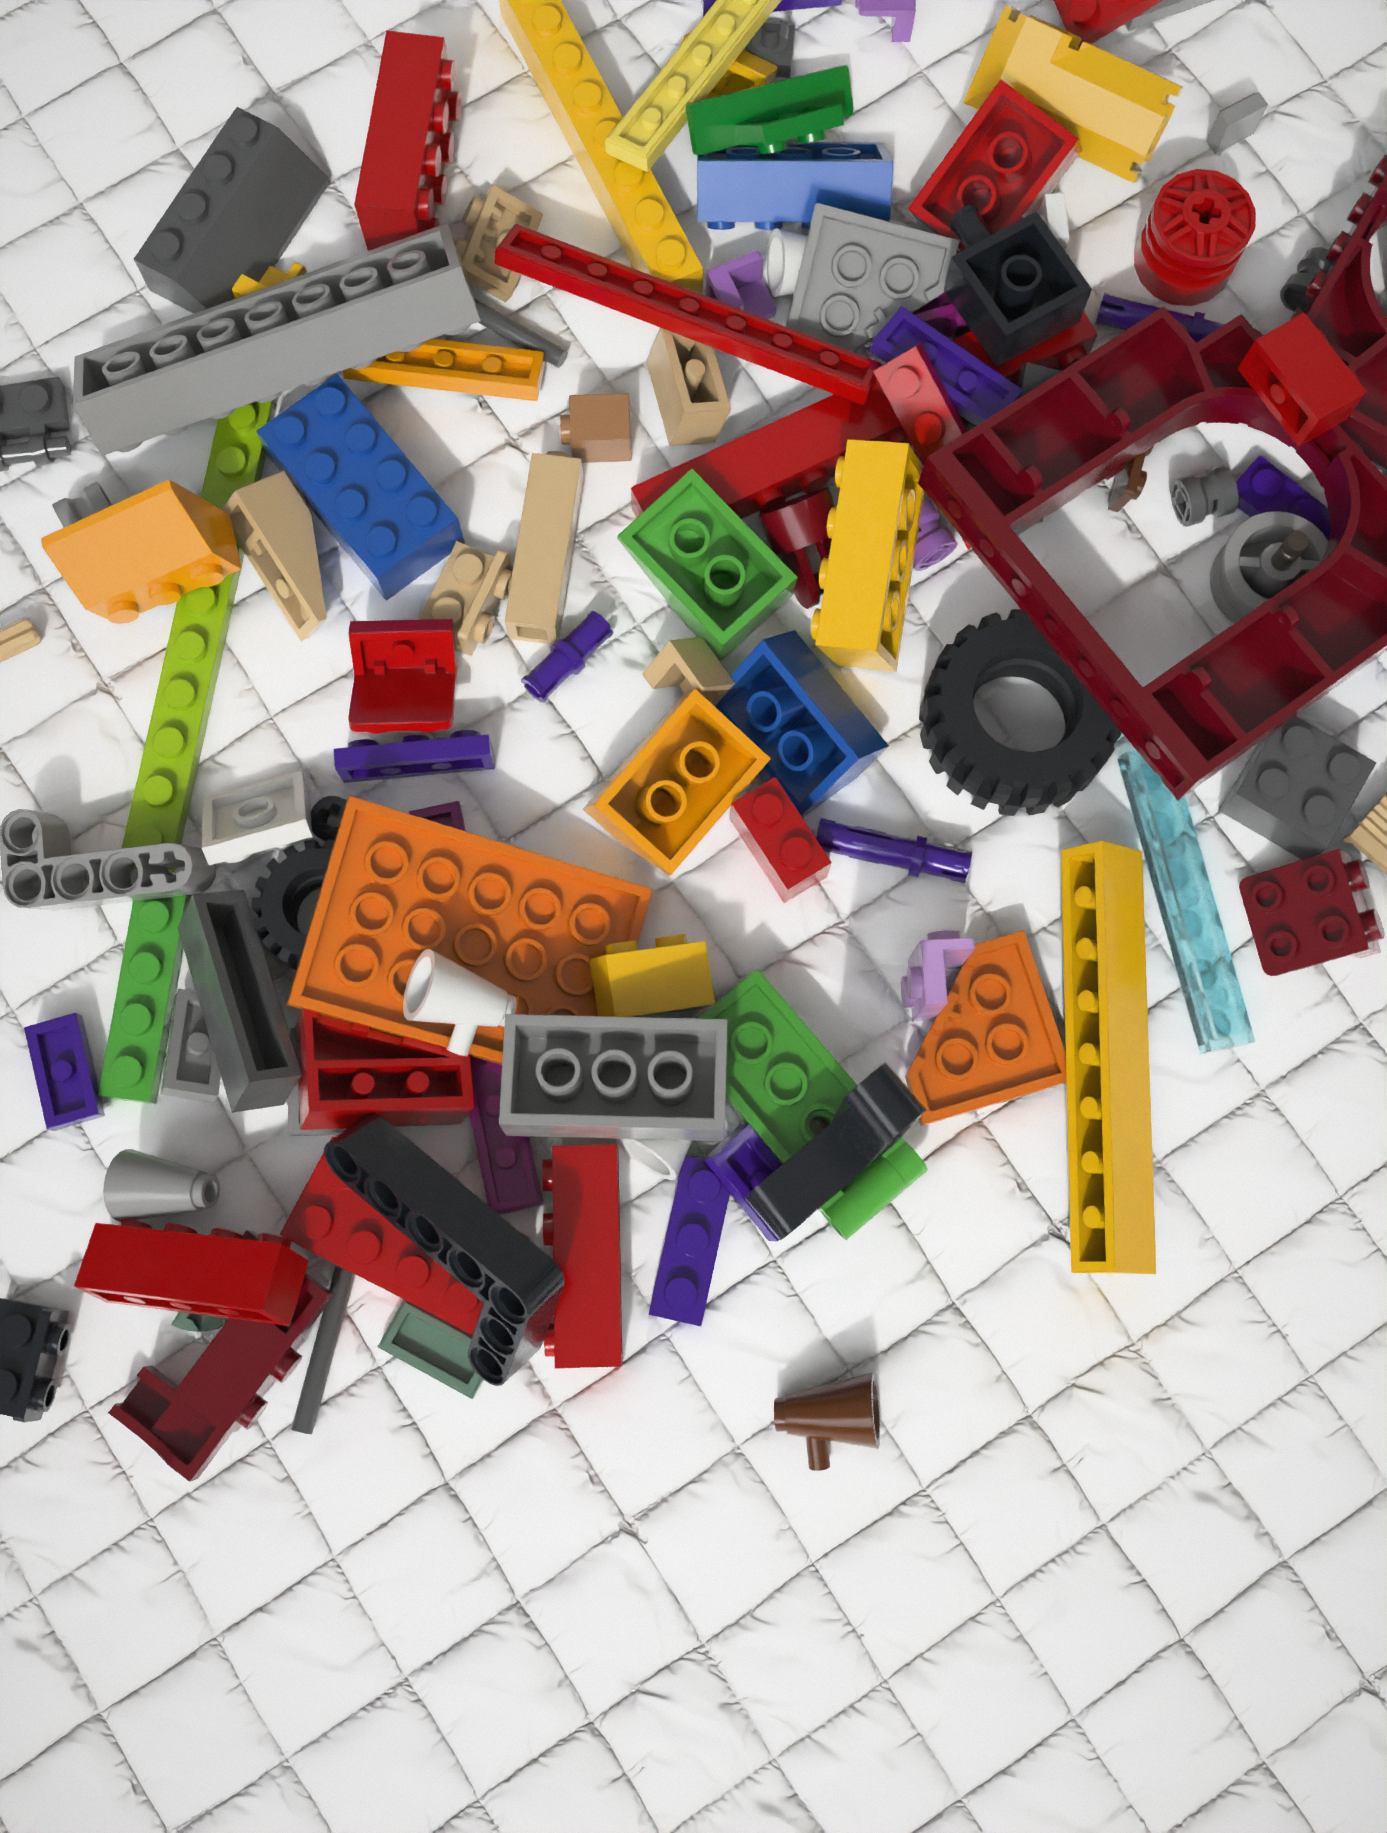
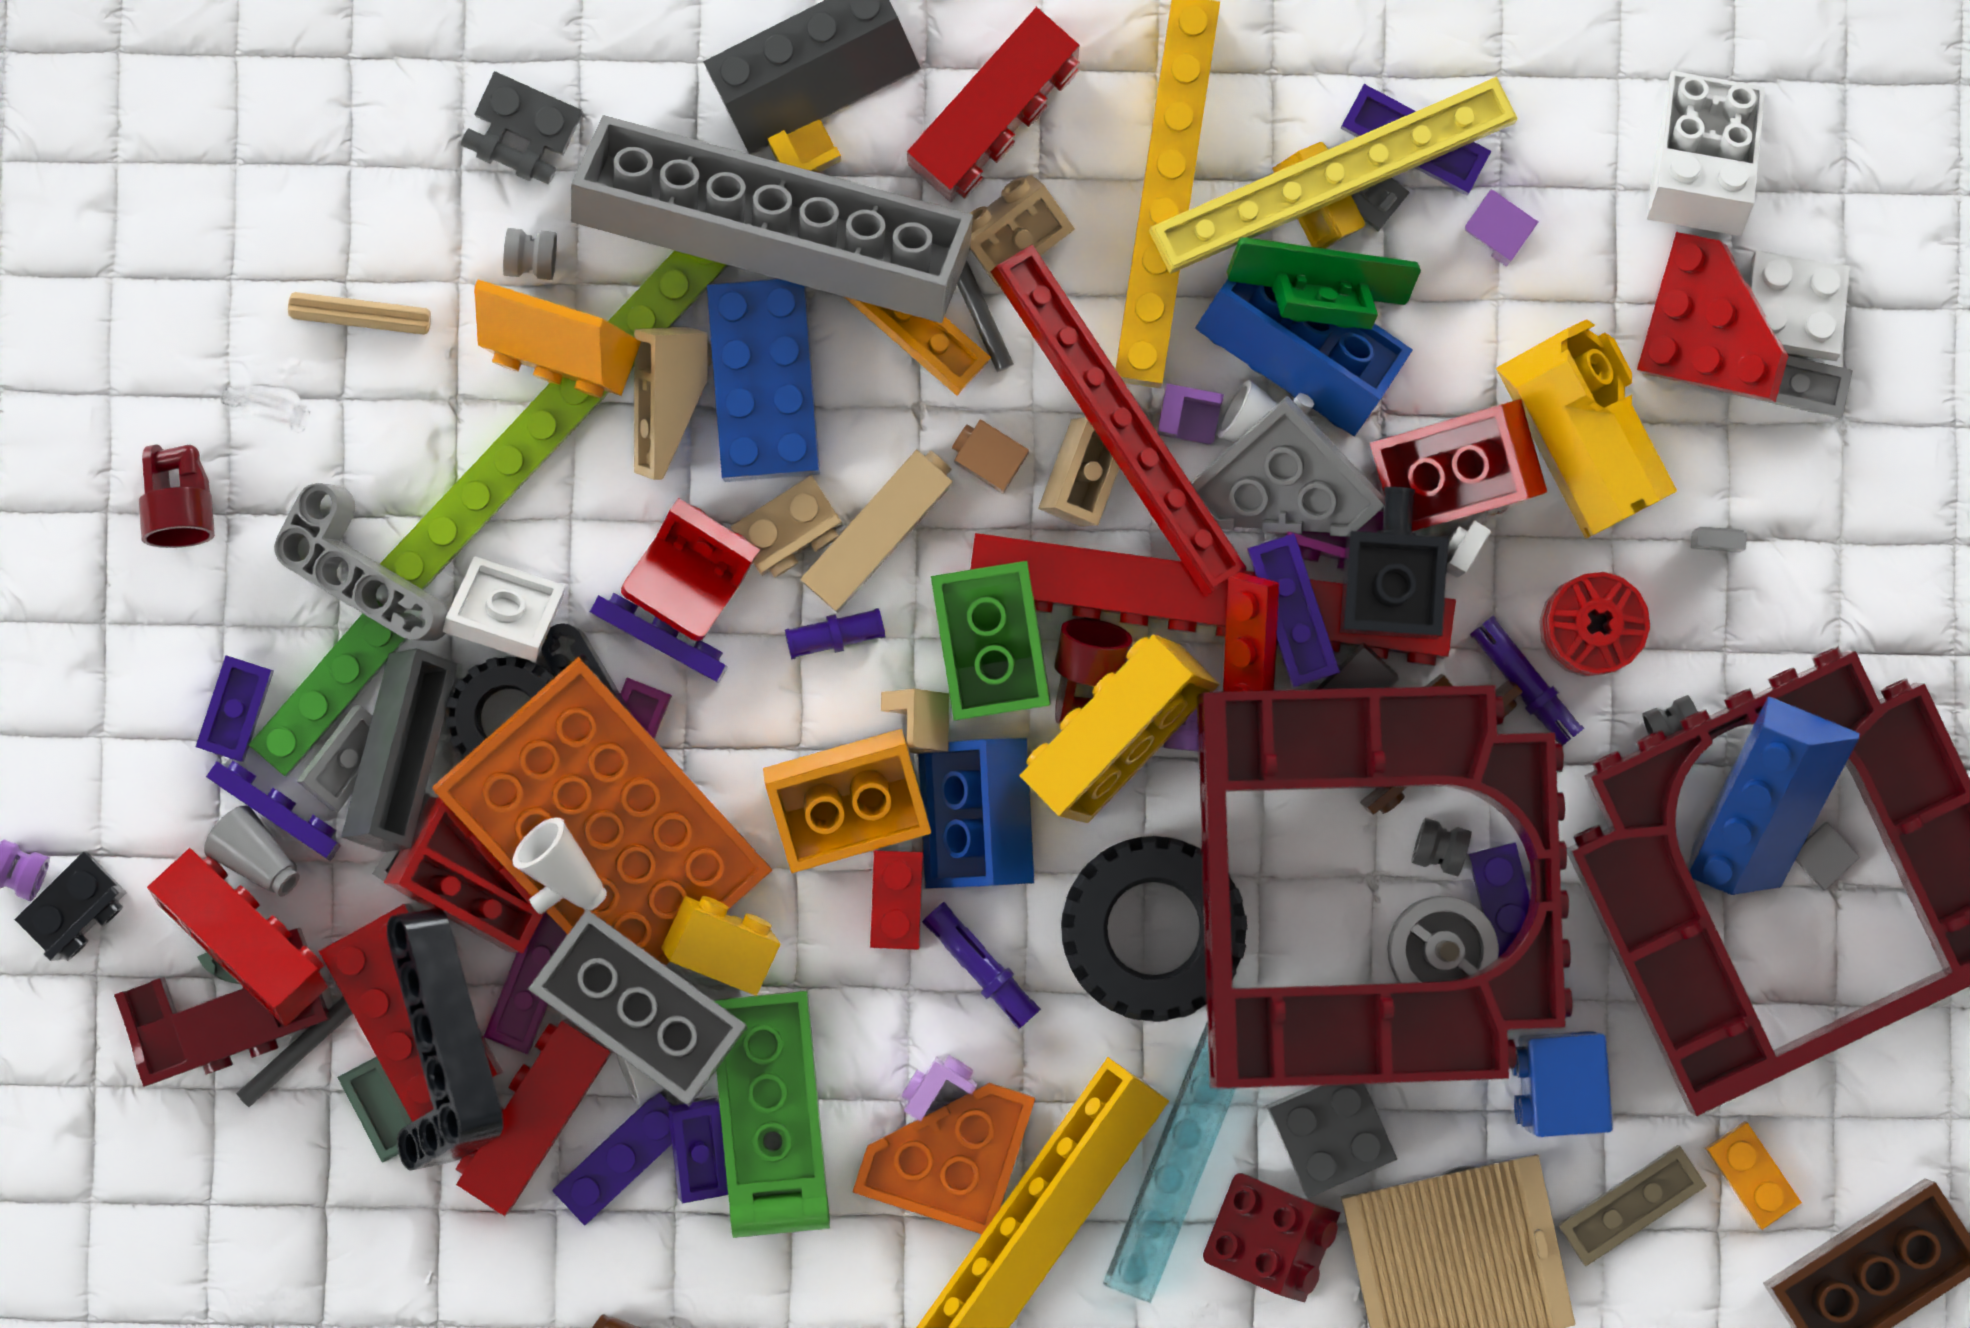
camera: 35 degrees right, 10 degrees up
(158, 1136) = (275, 808): none -> dark purple plate
(862, 1130) = (772, 1175): black beam -> none
(1301, 379) = (1548, 827): red brick -> none

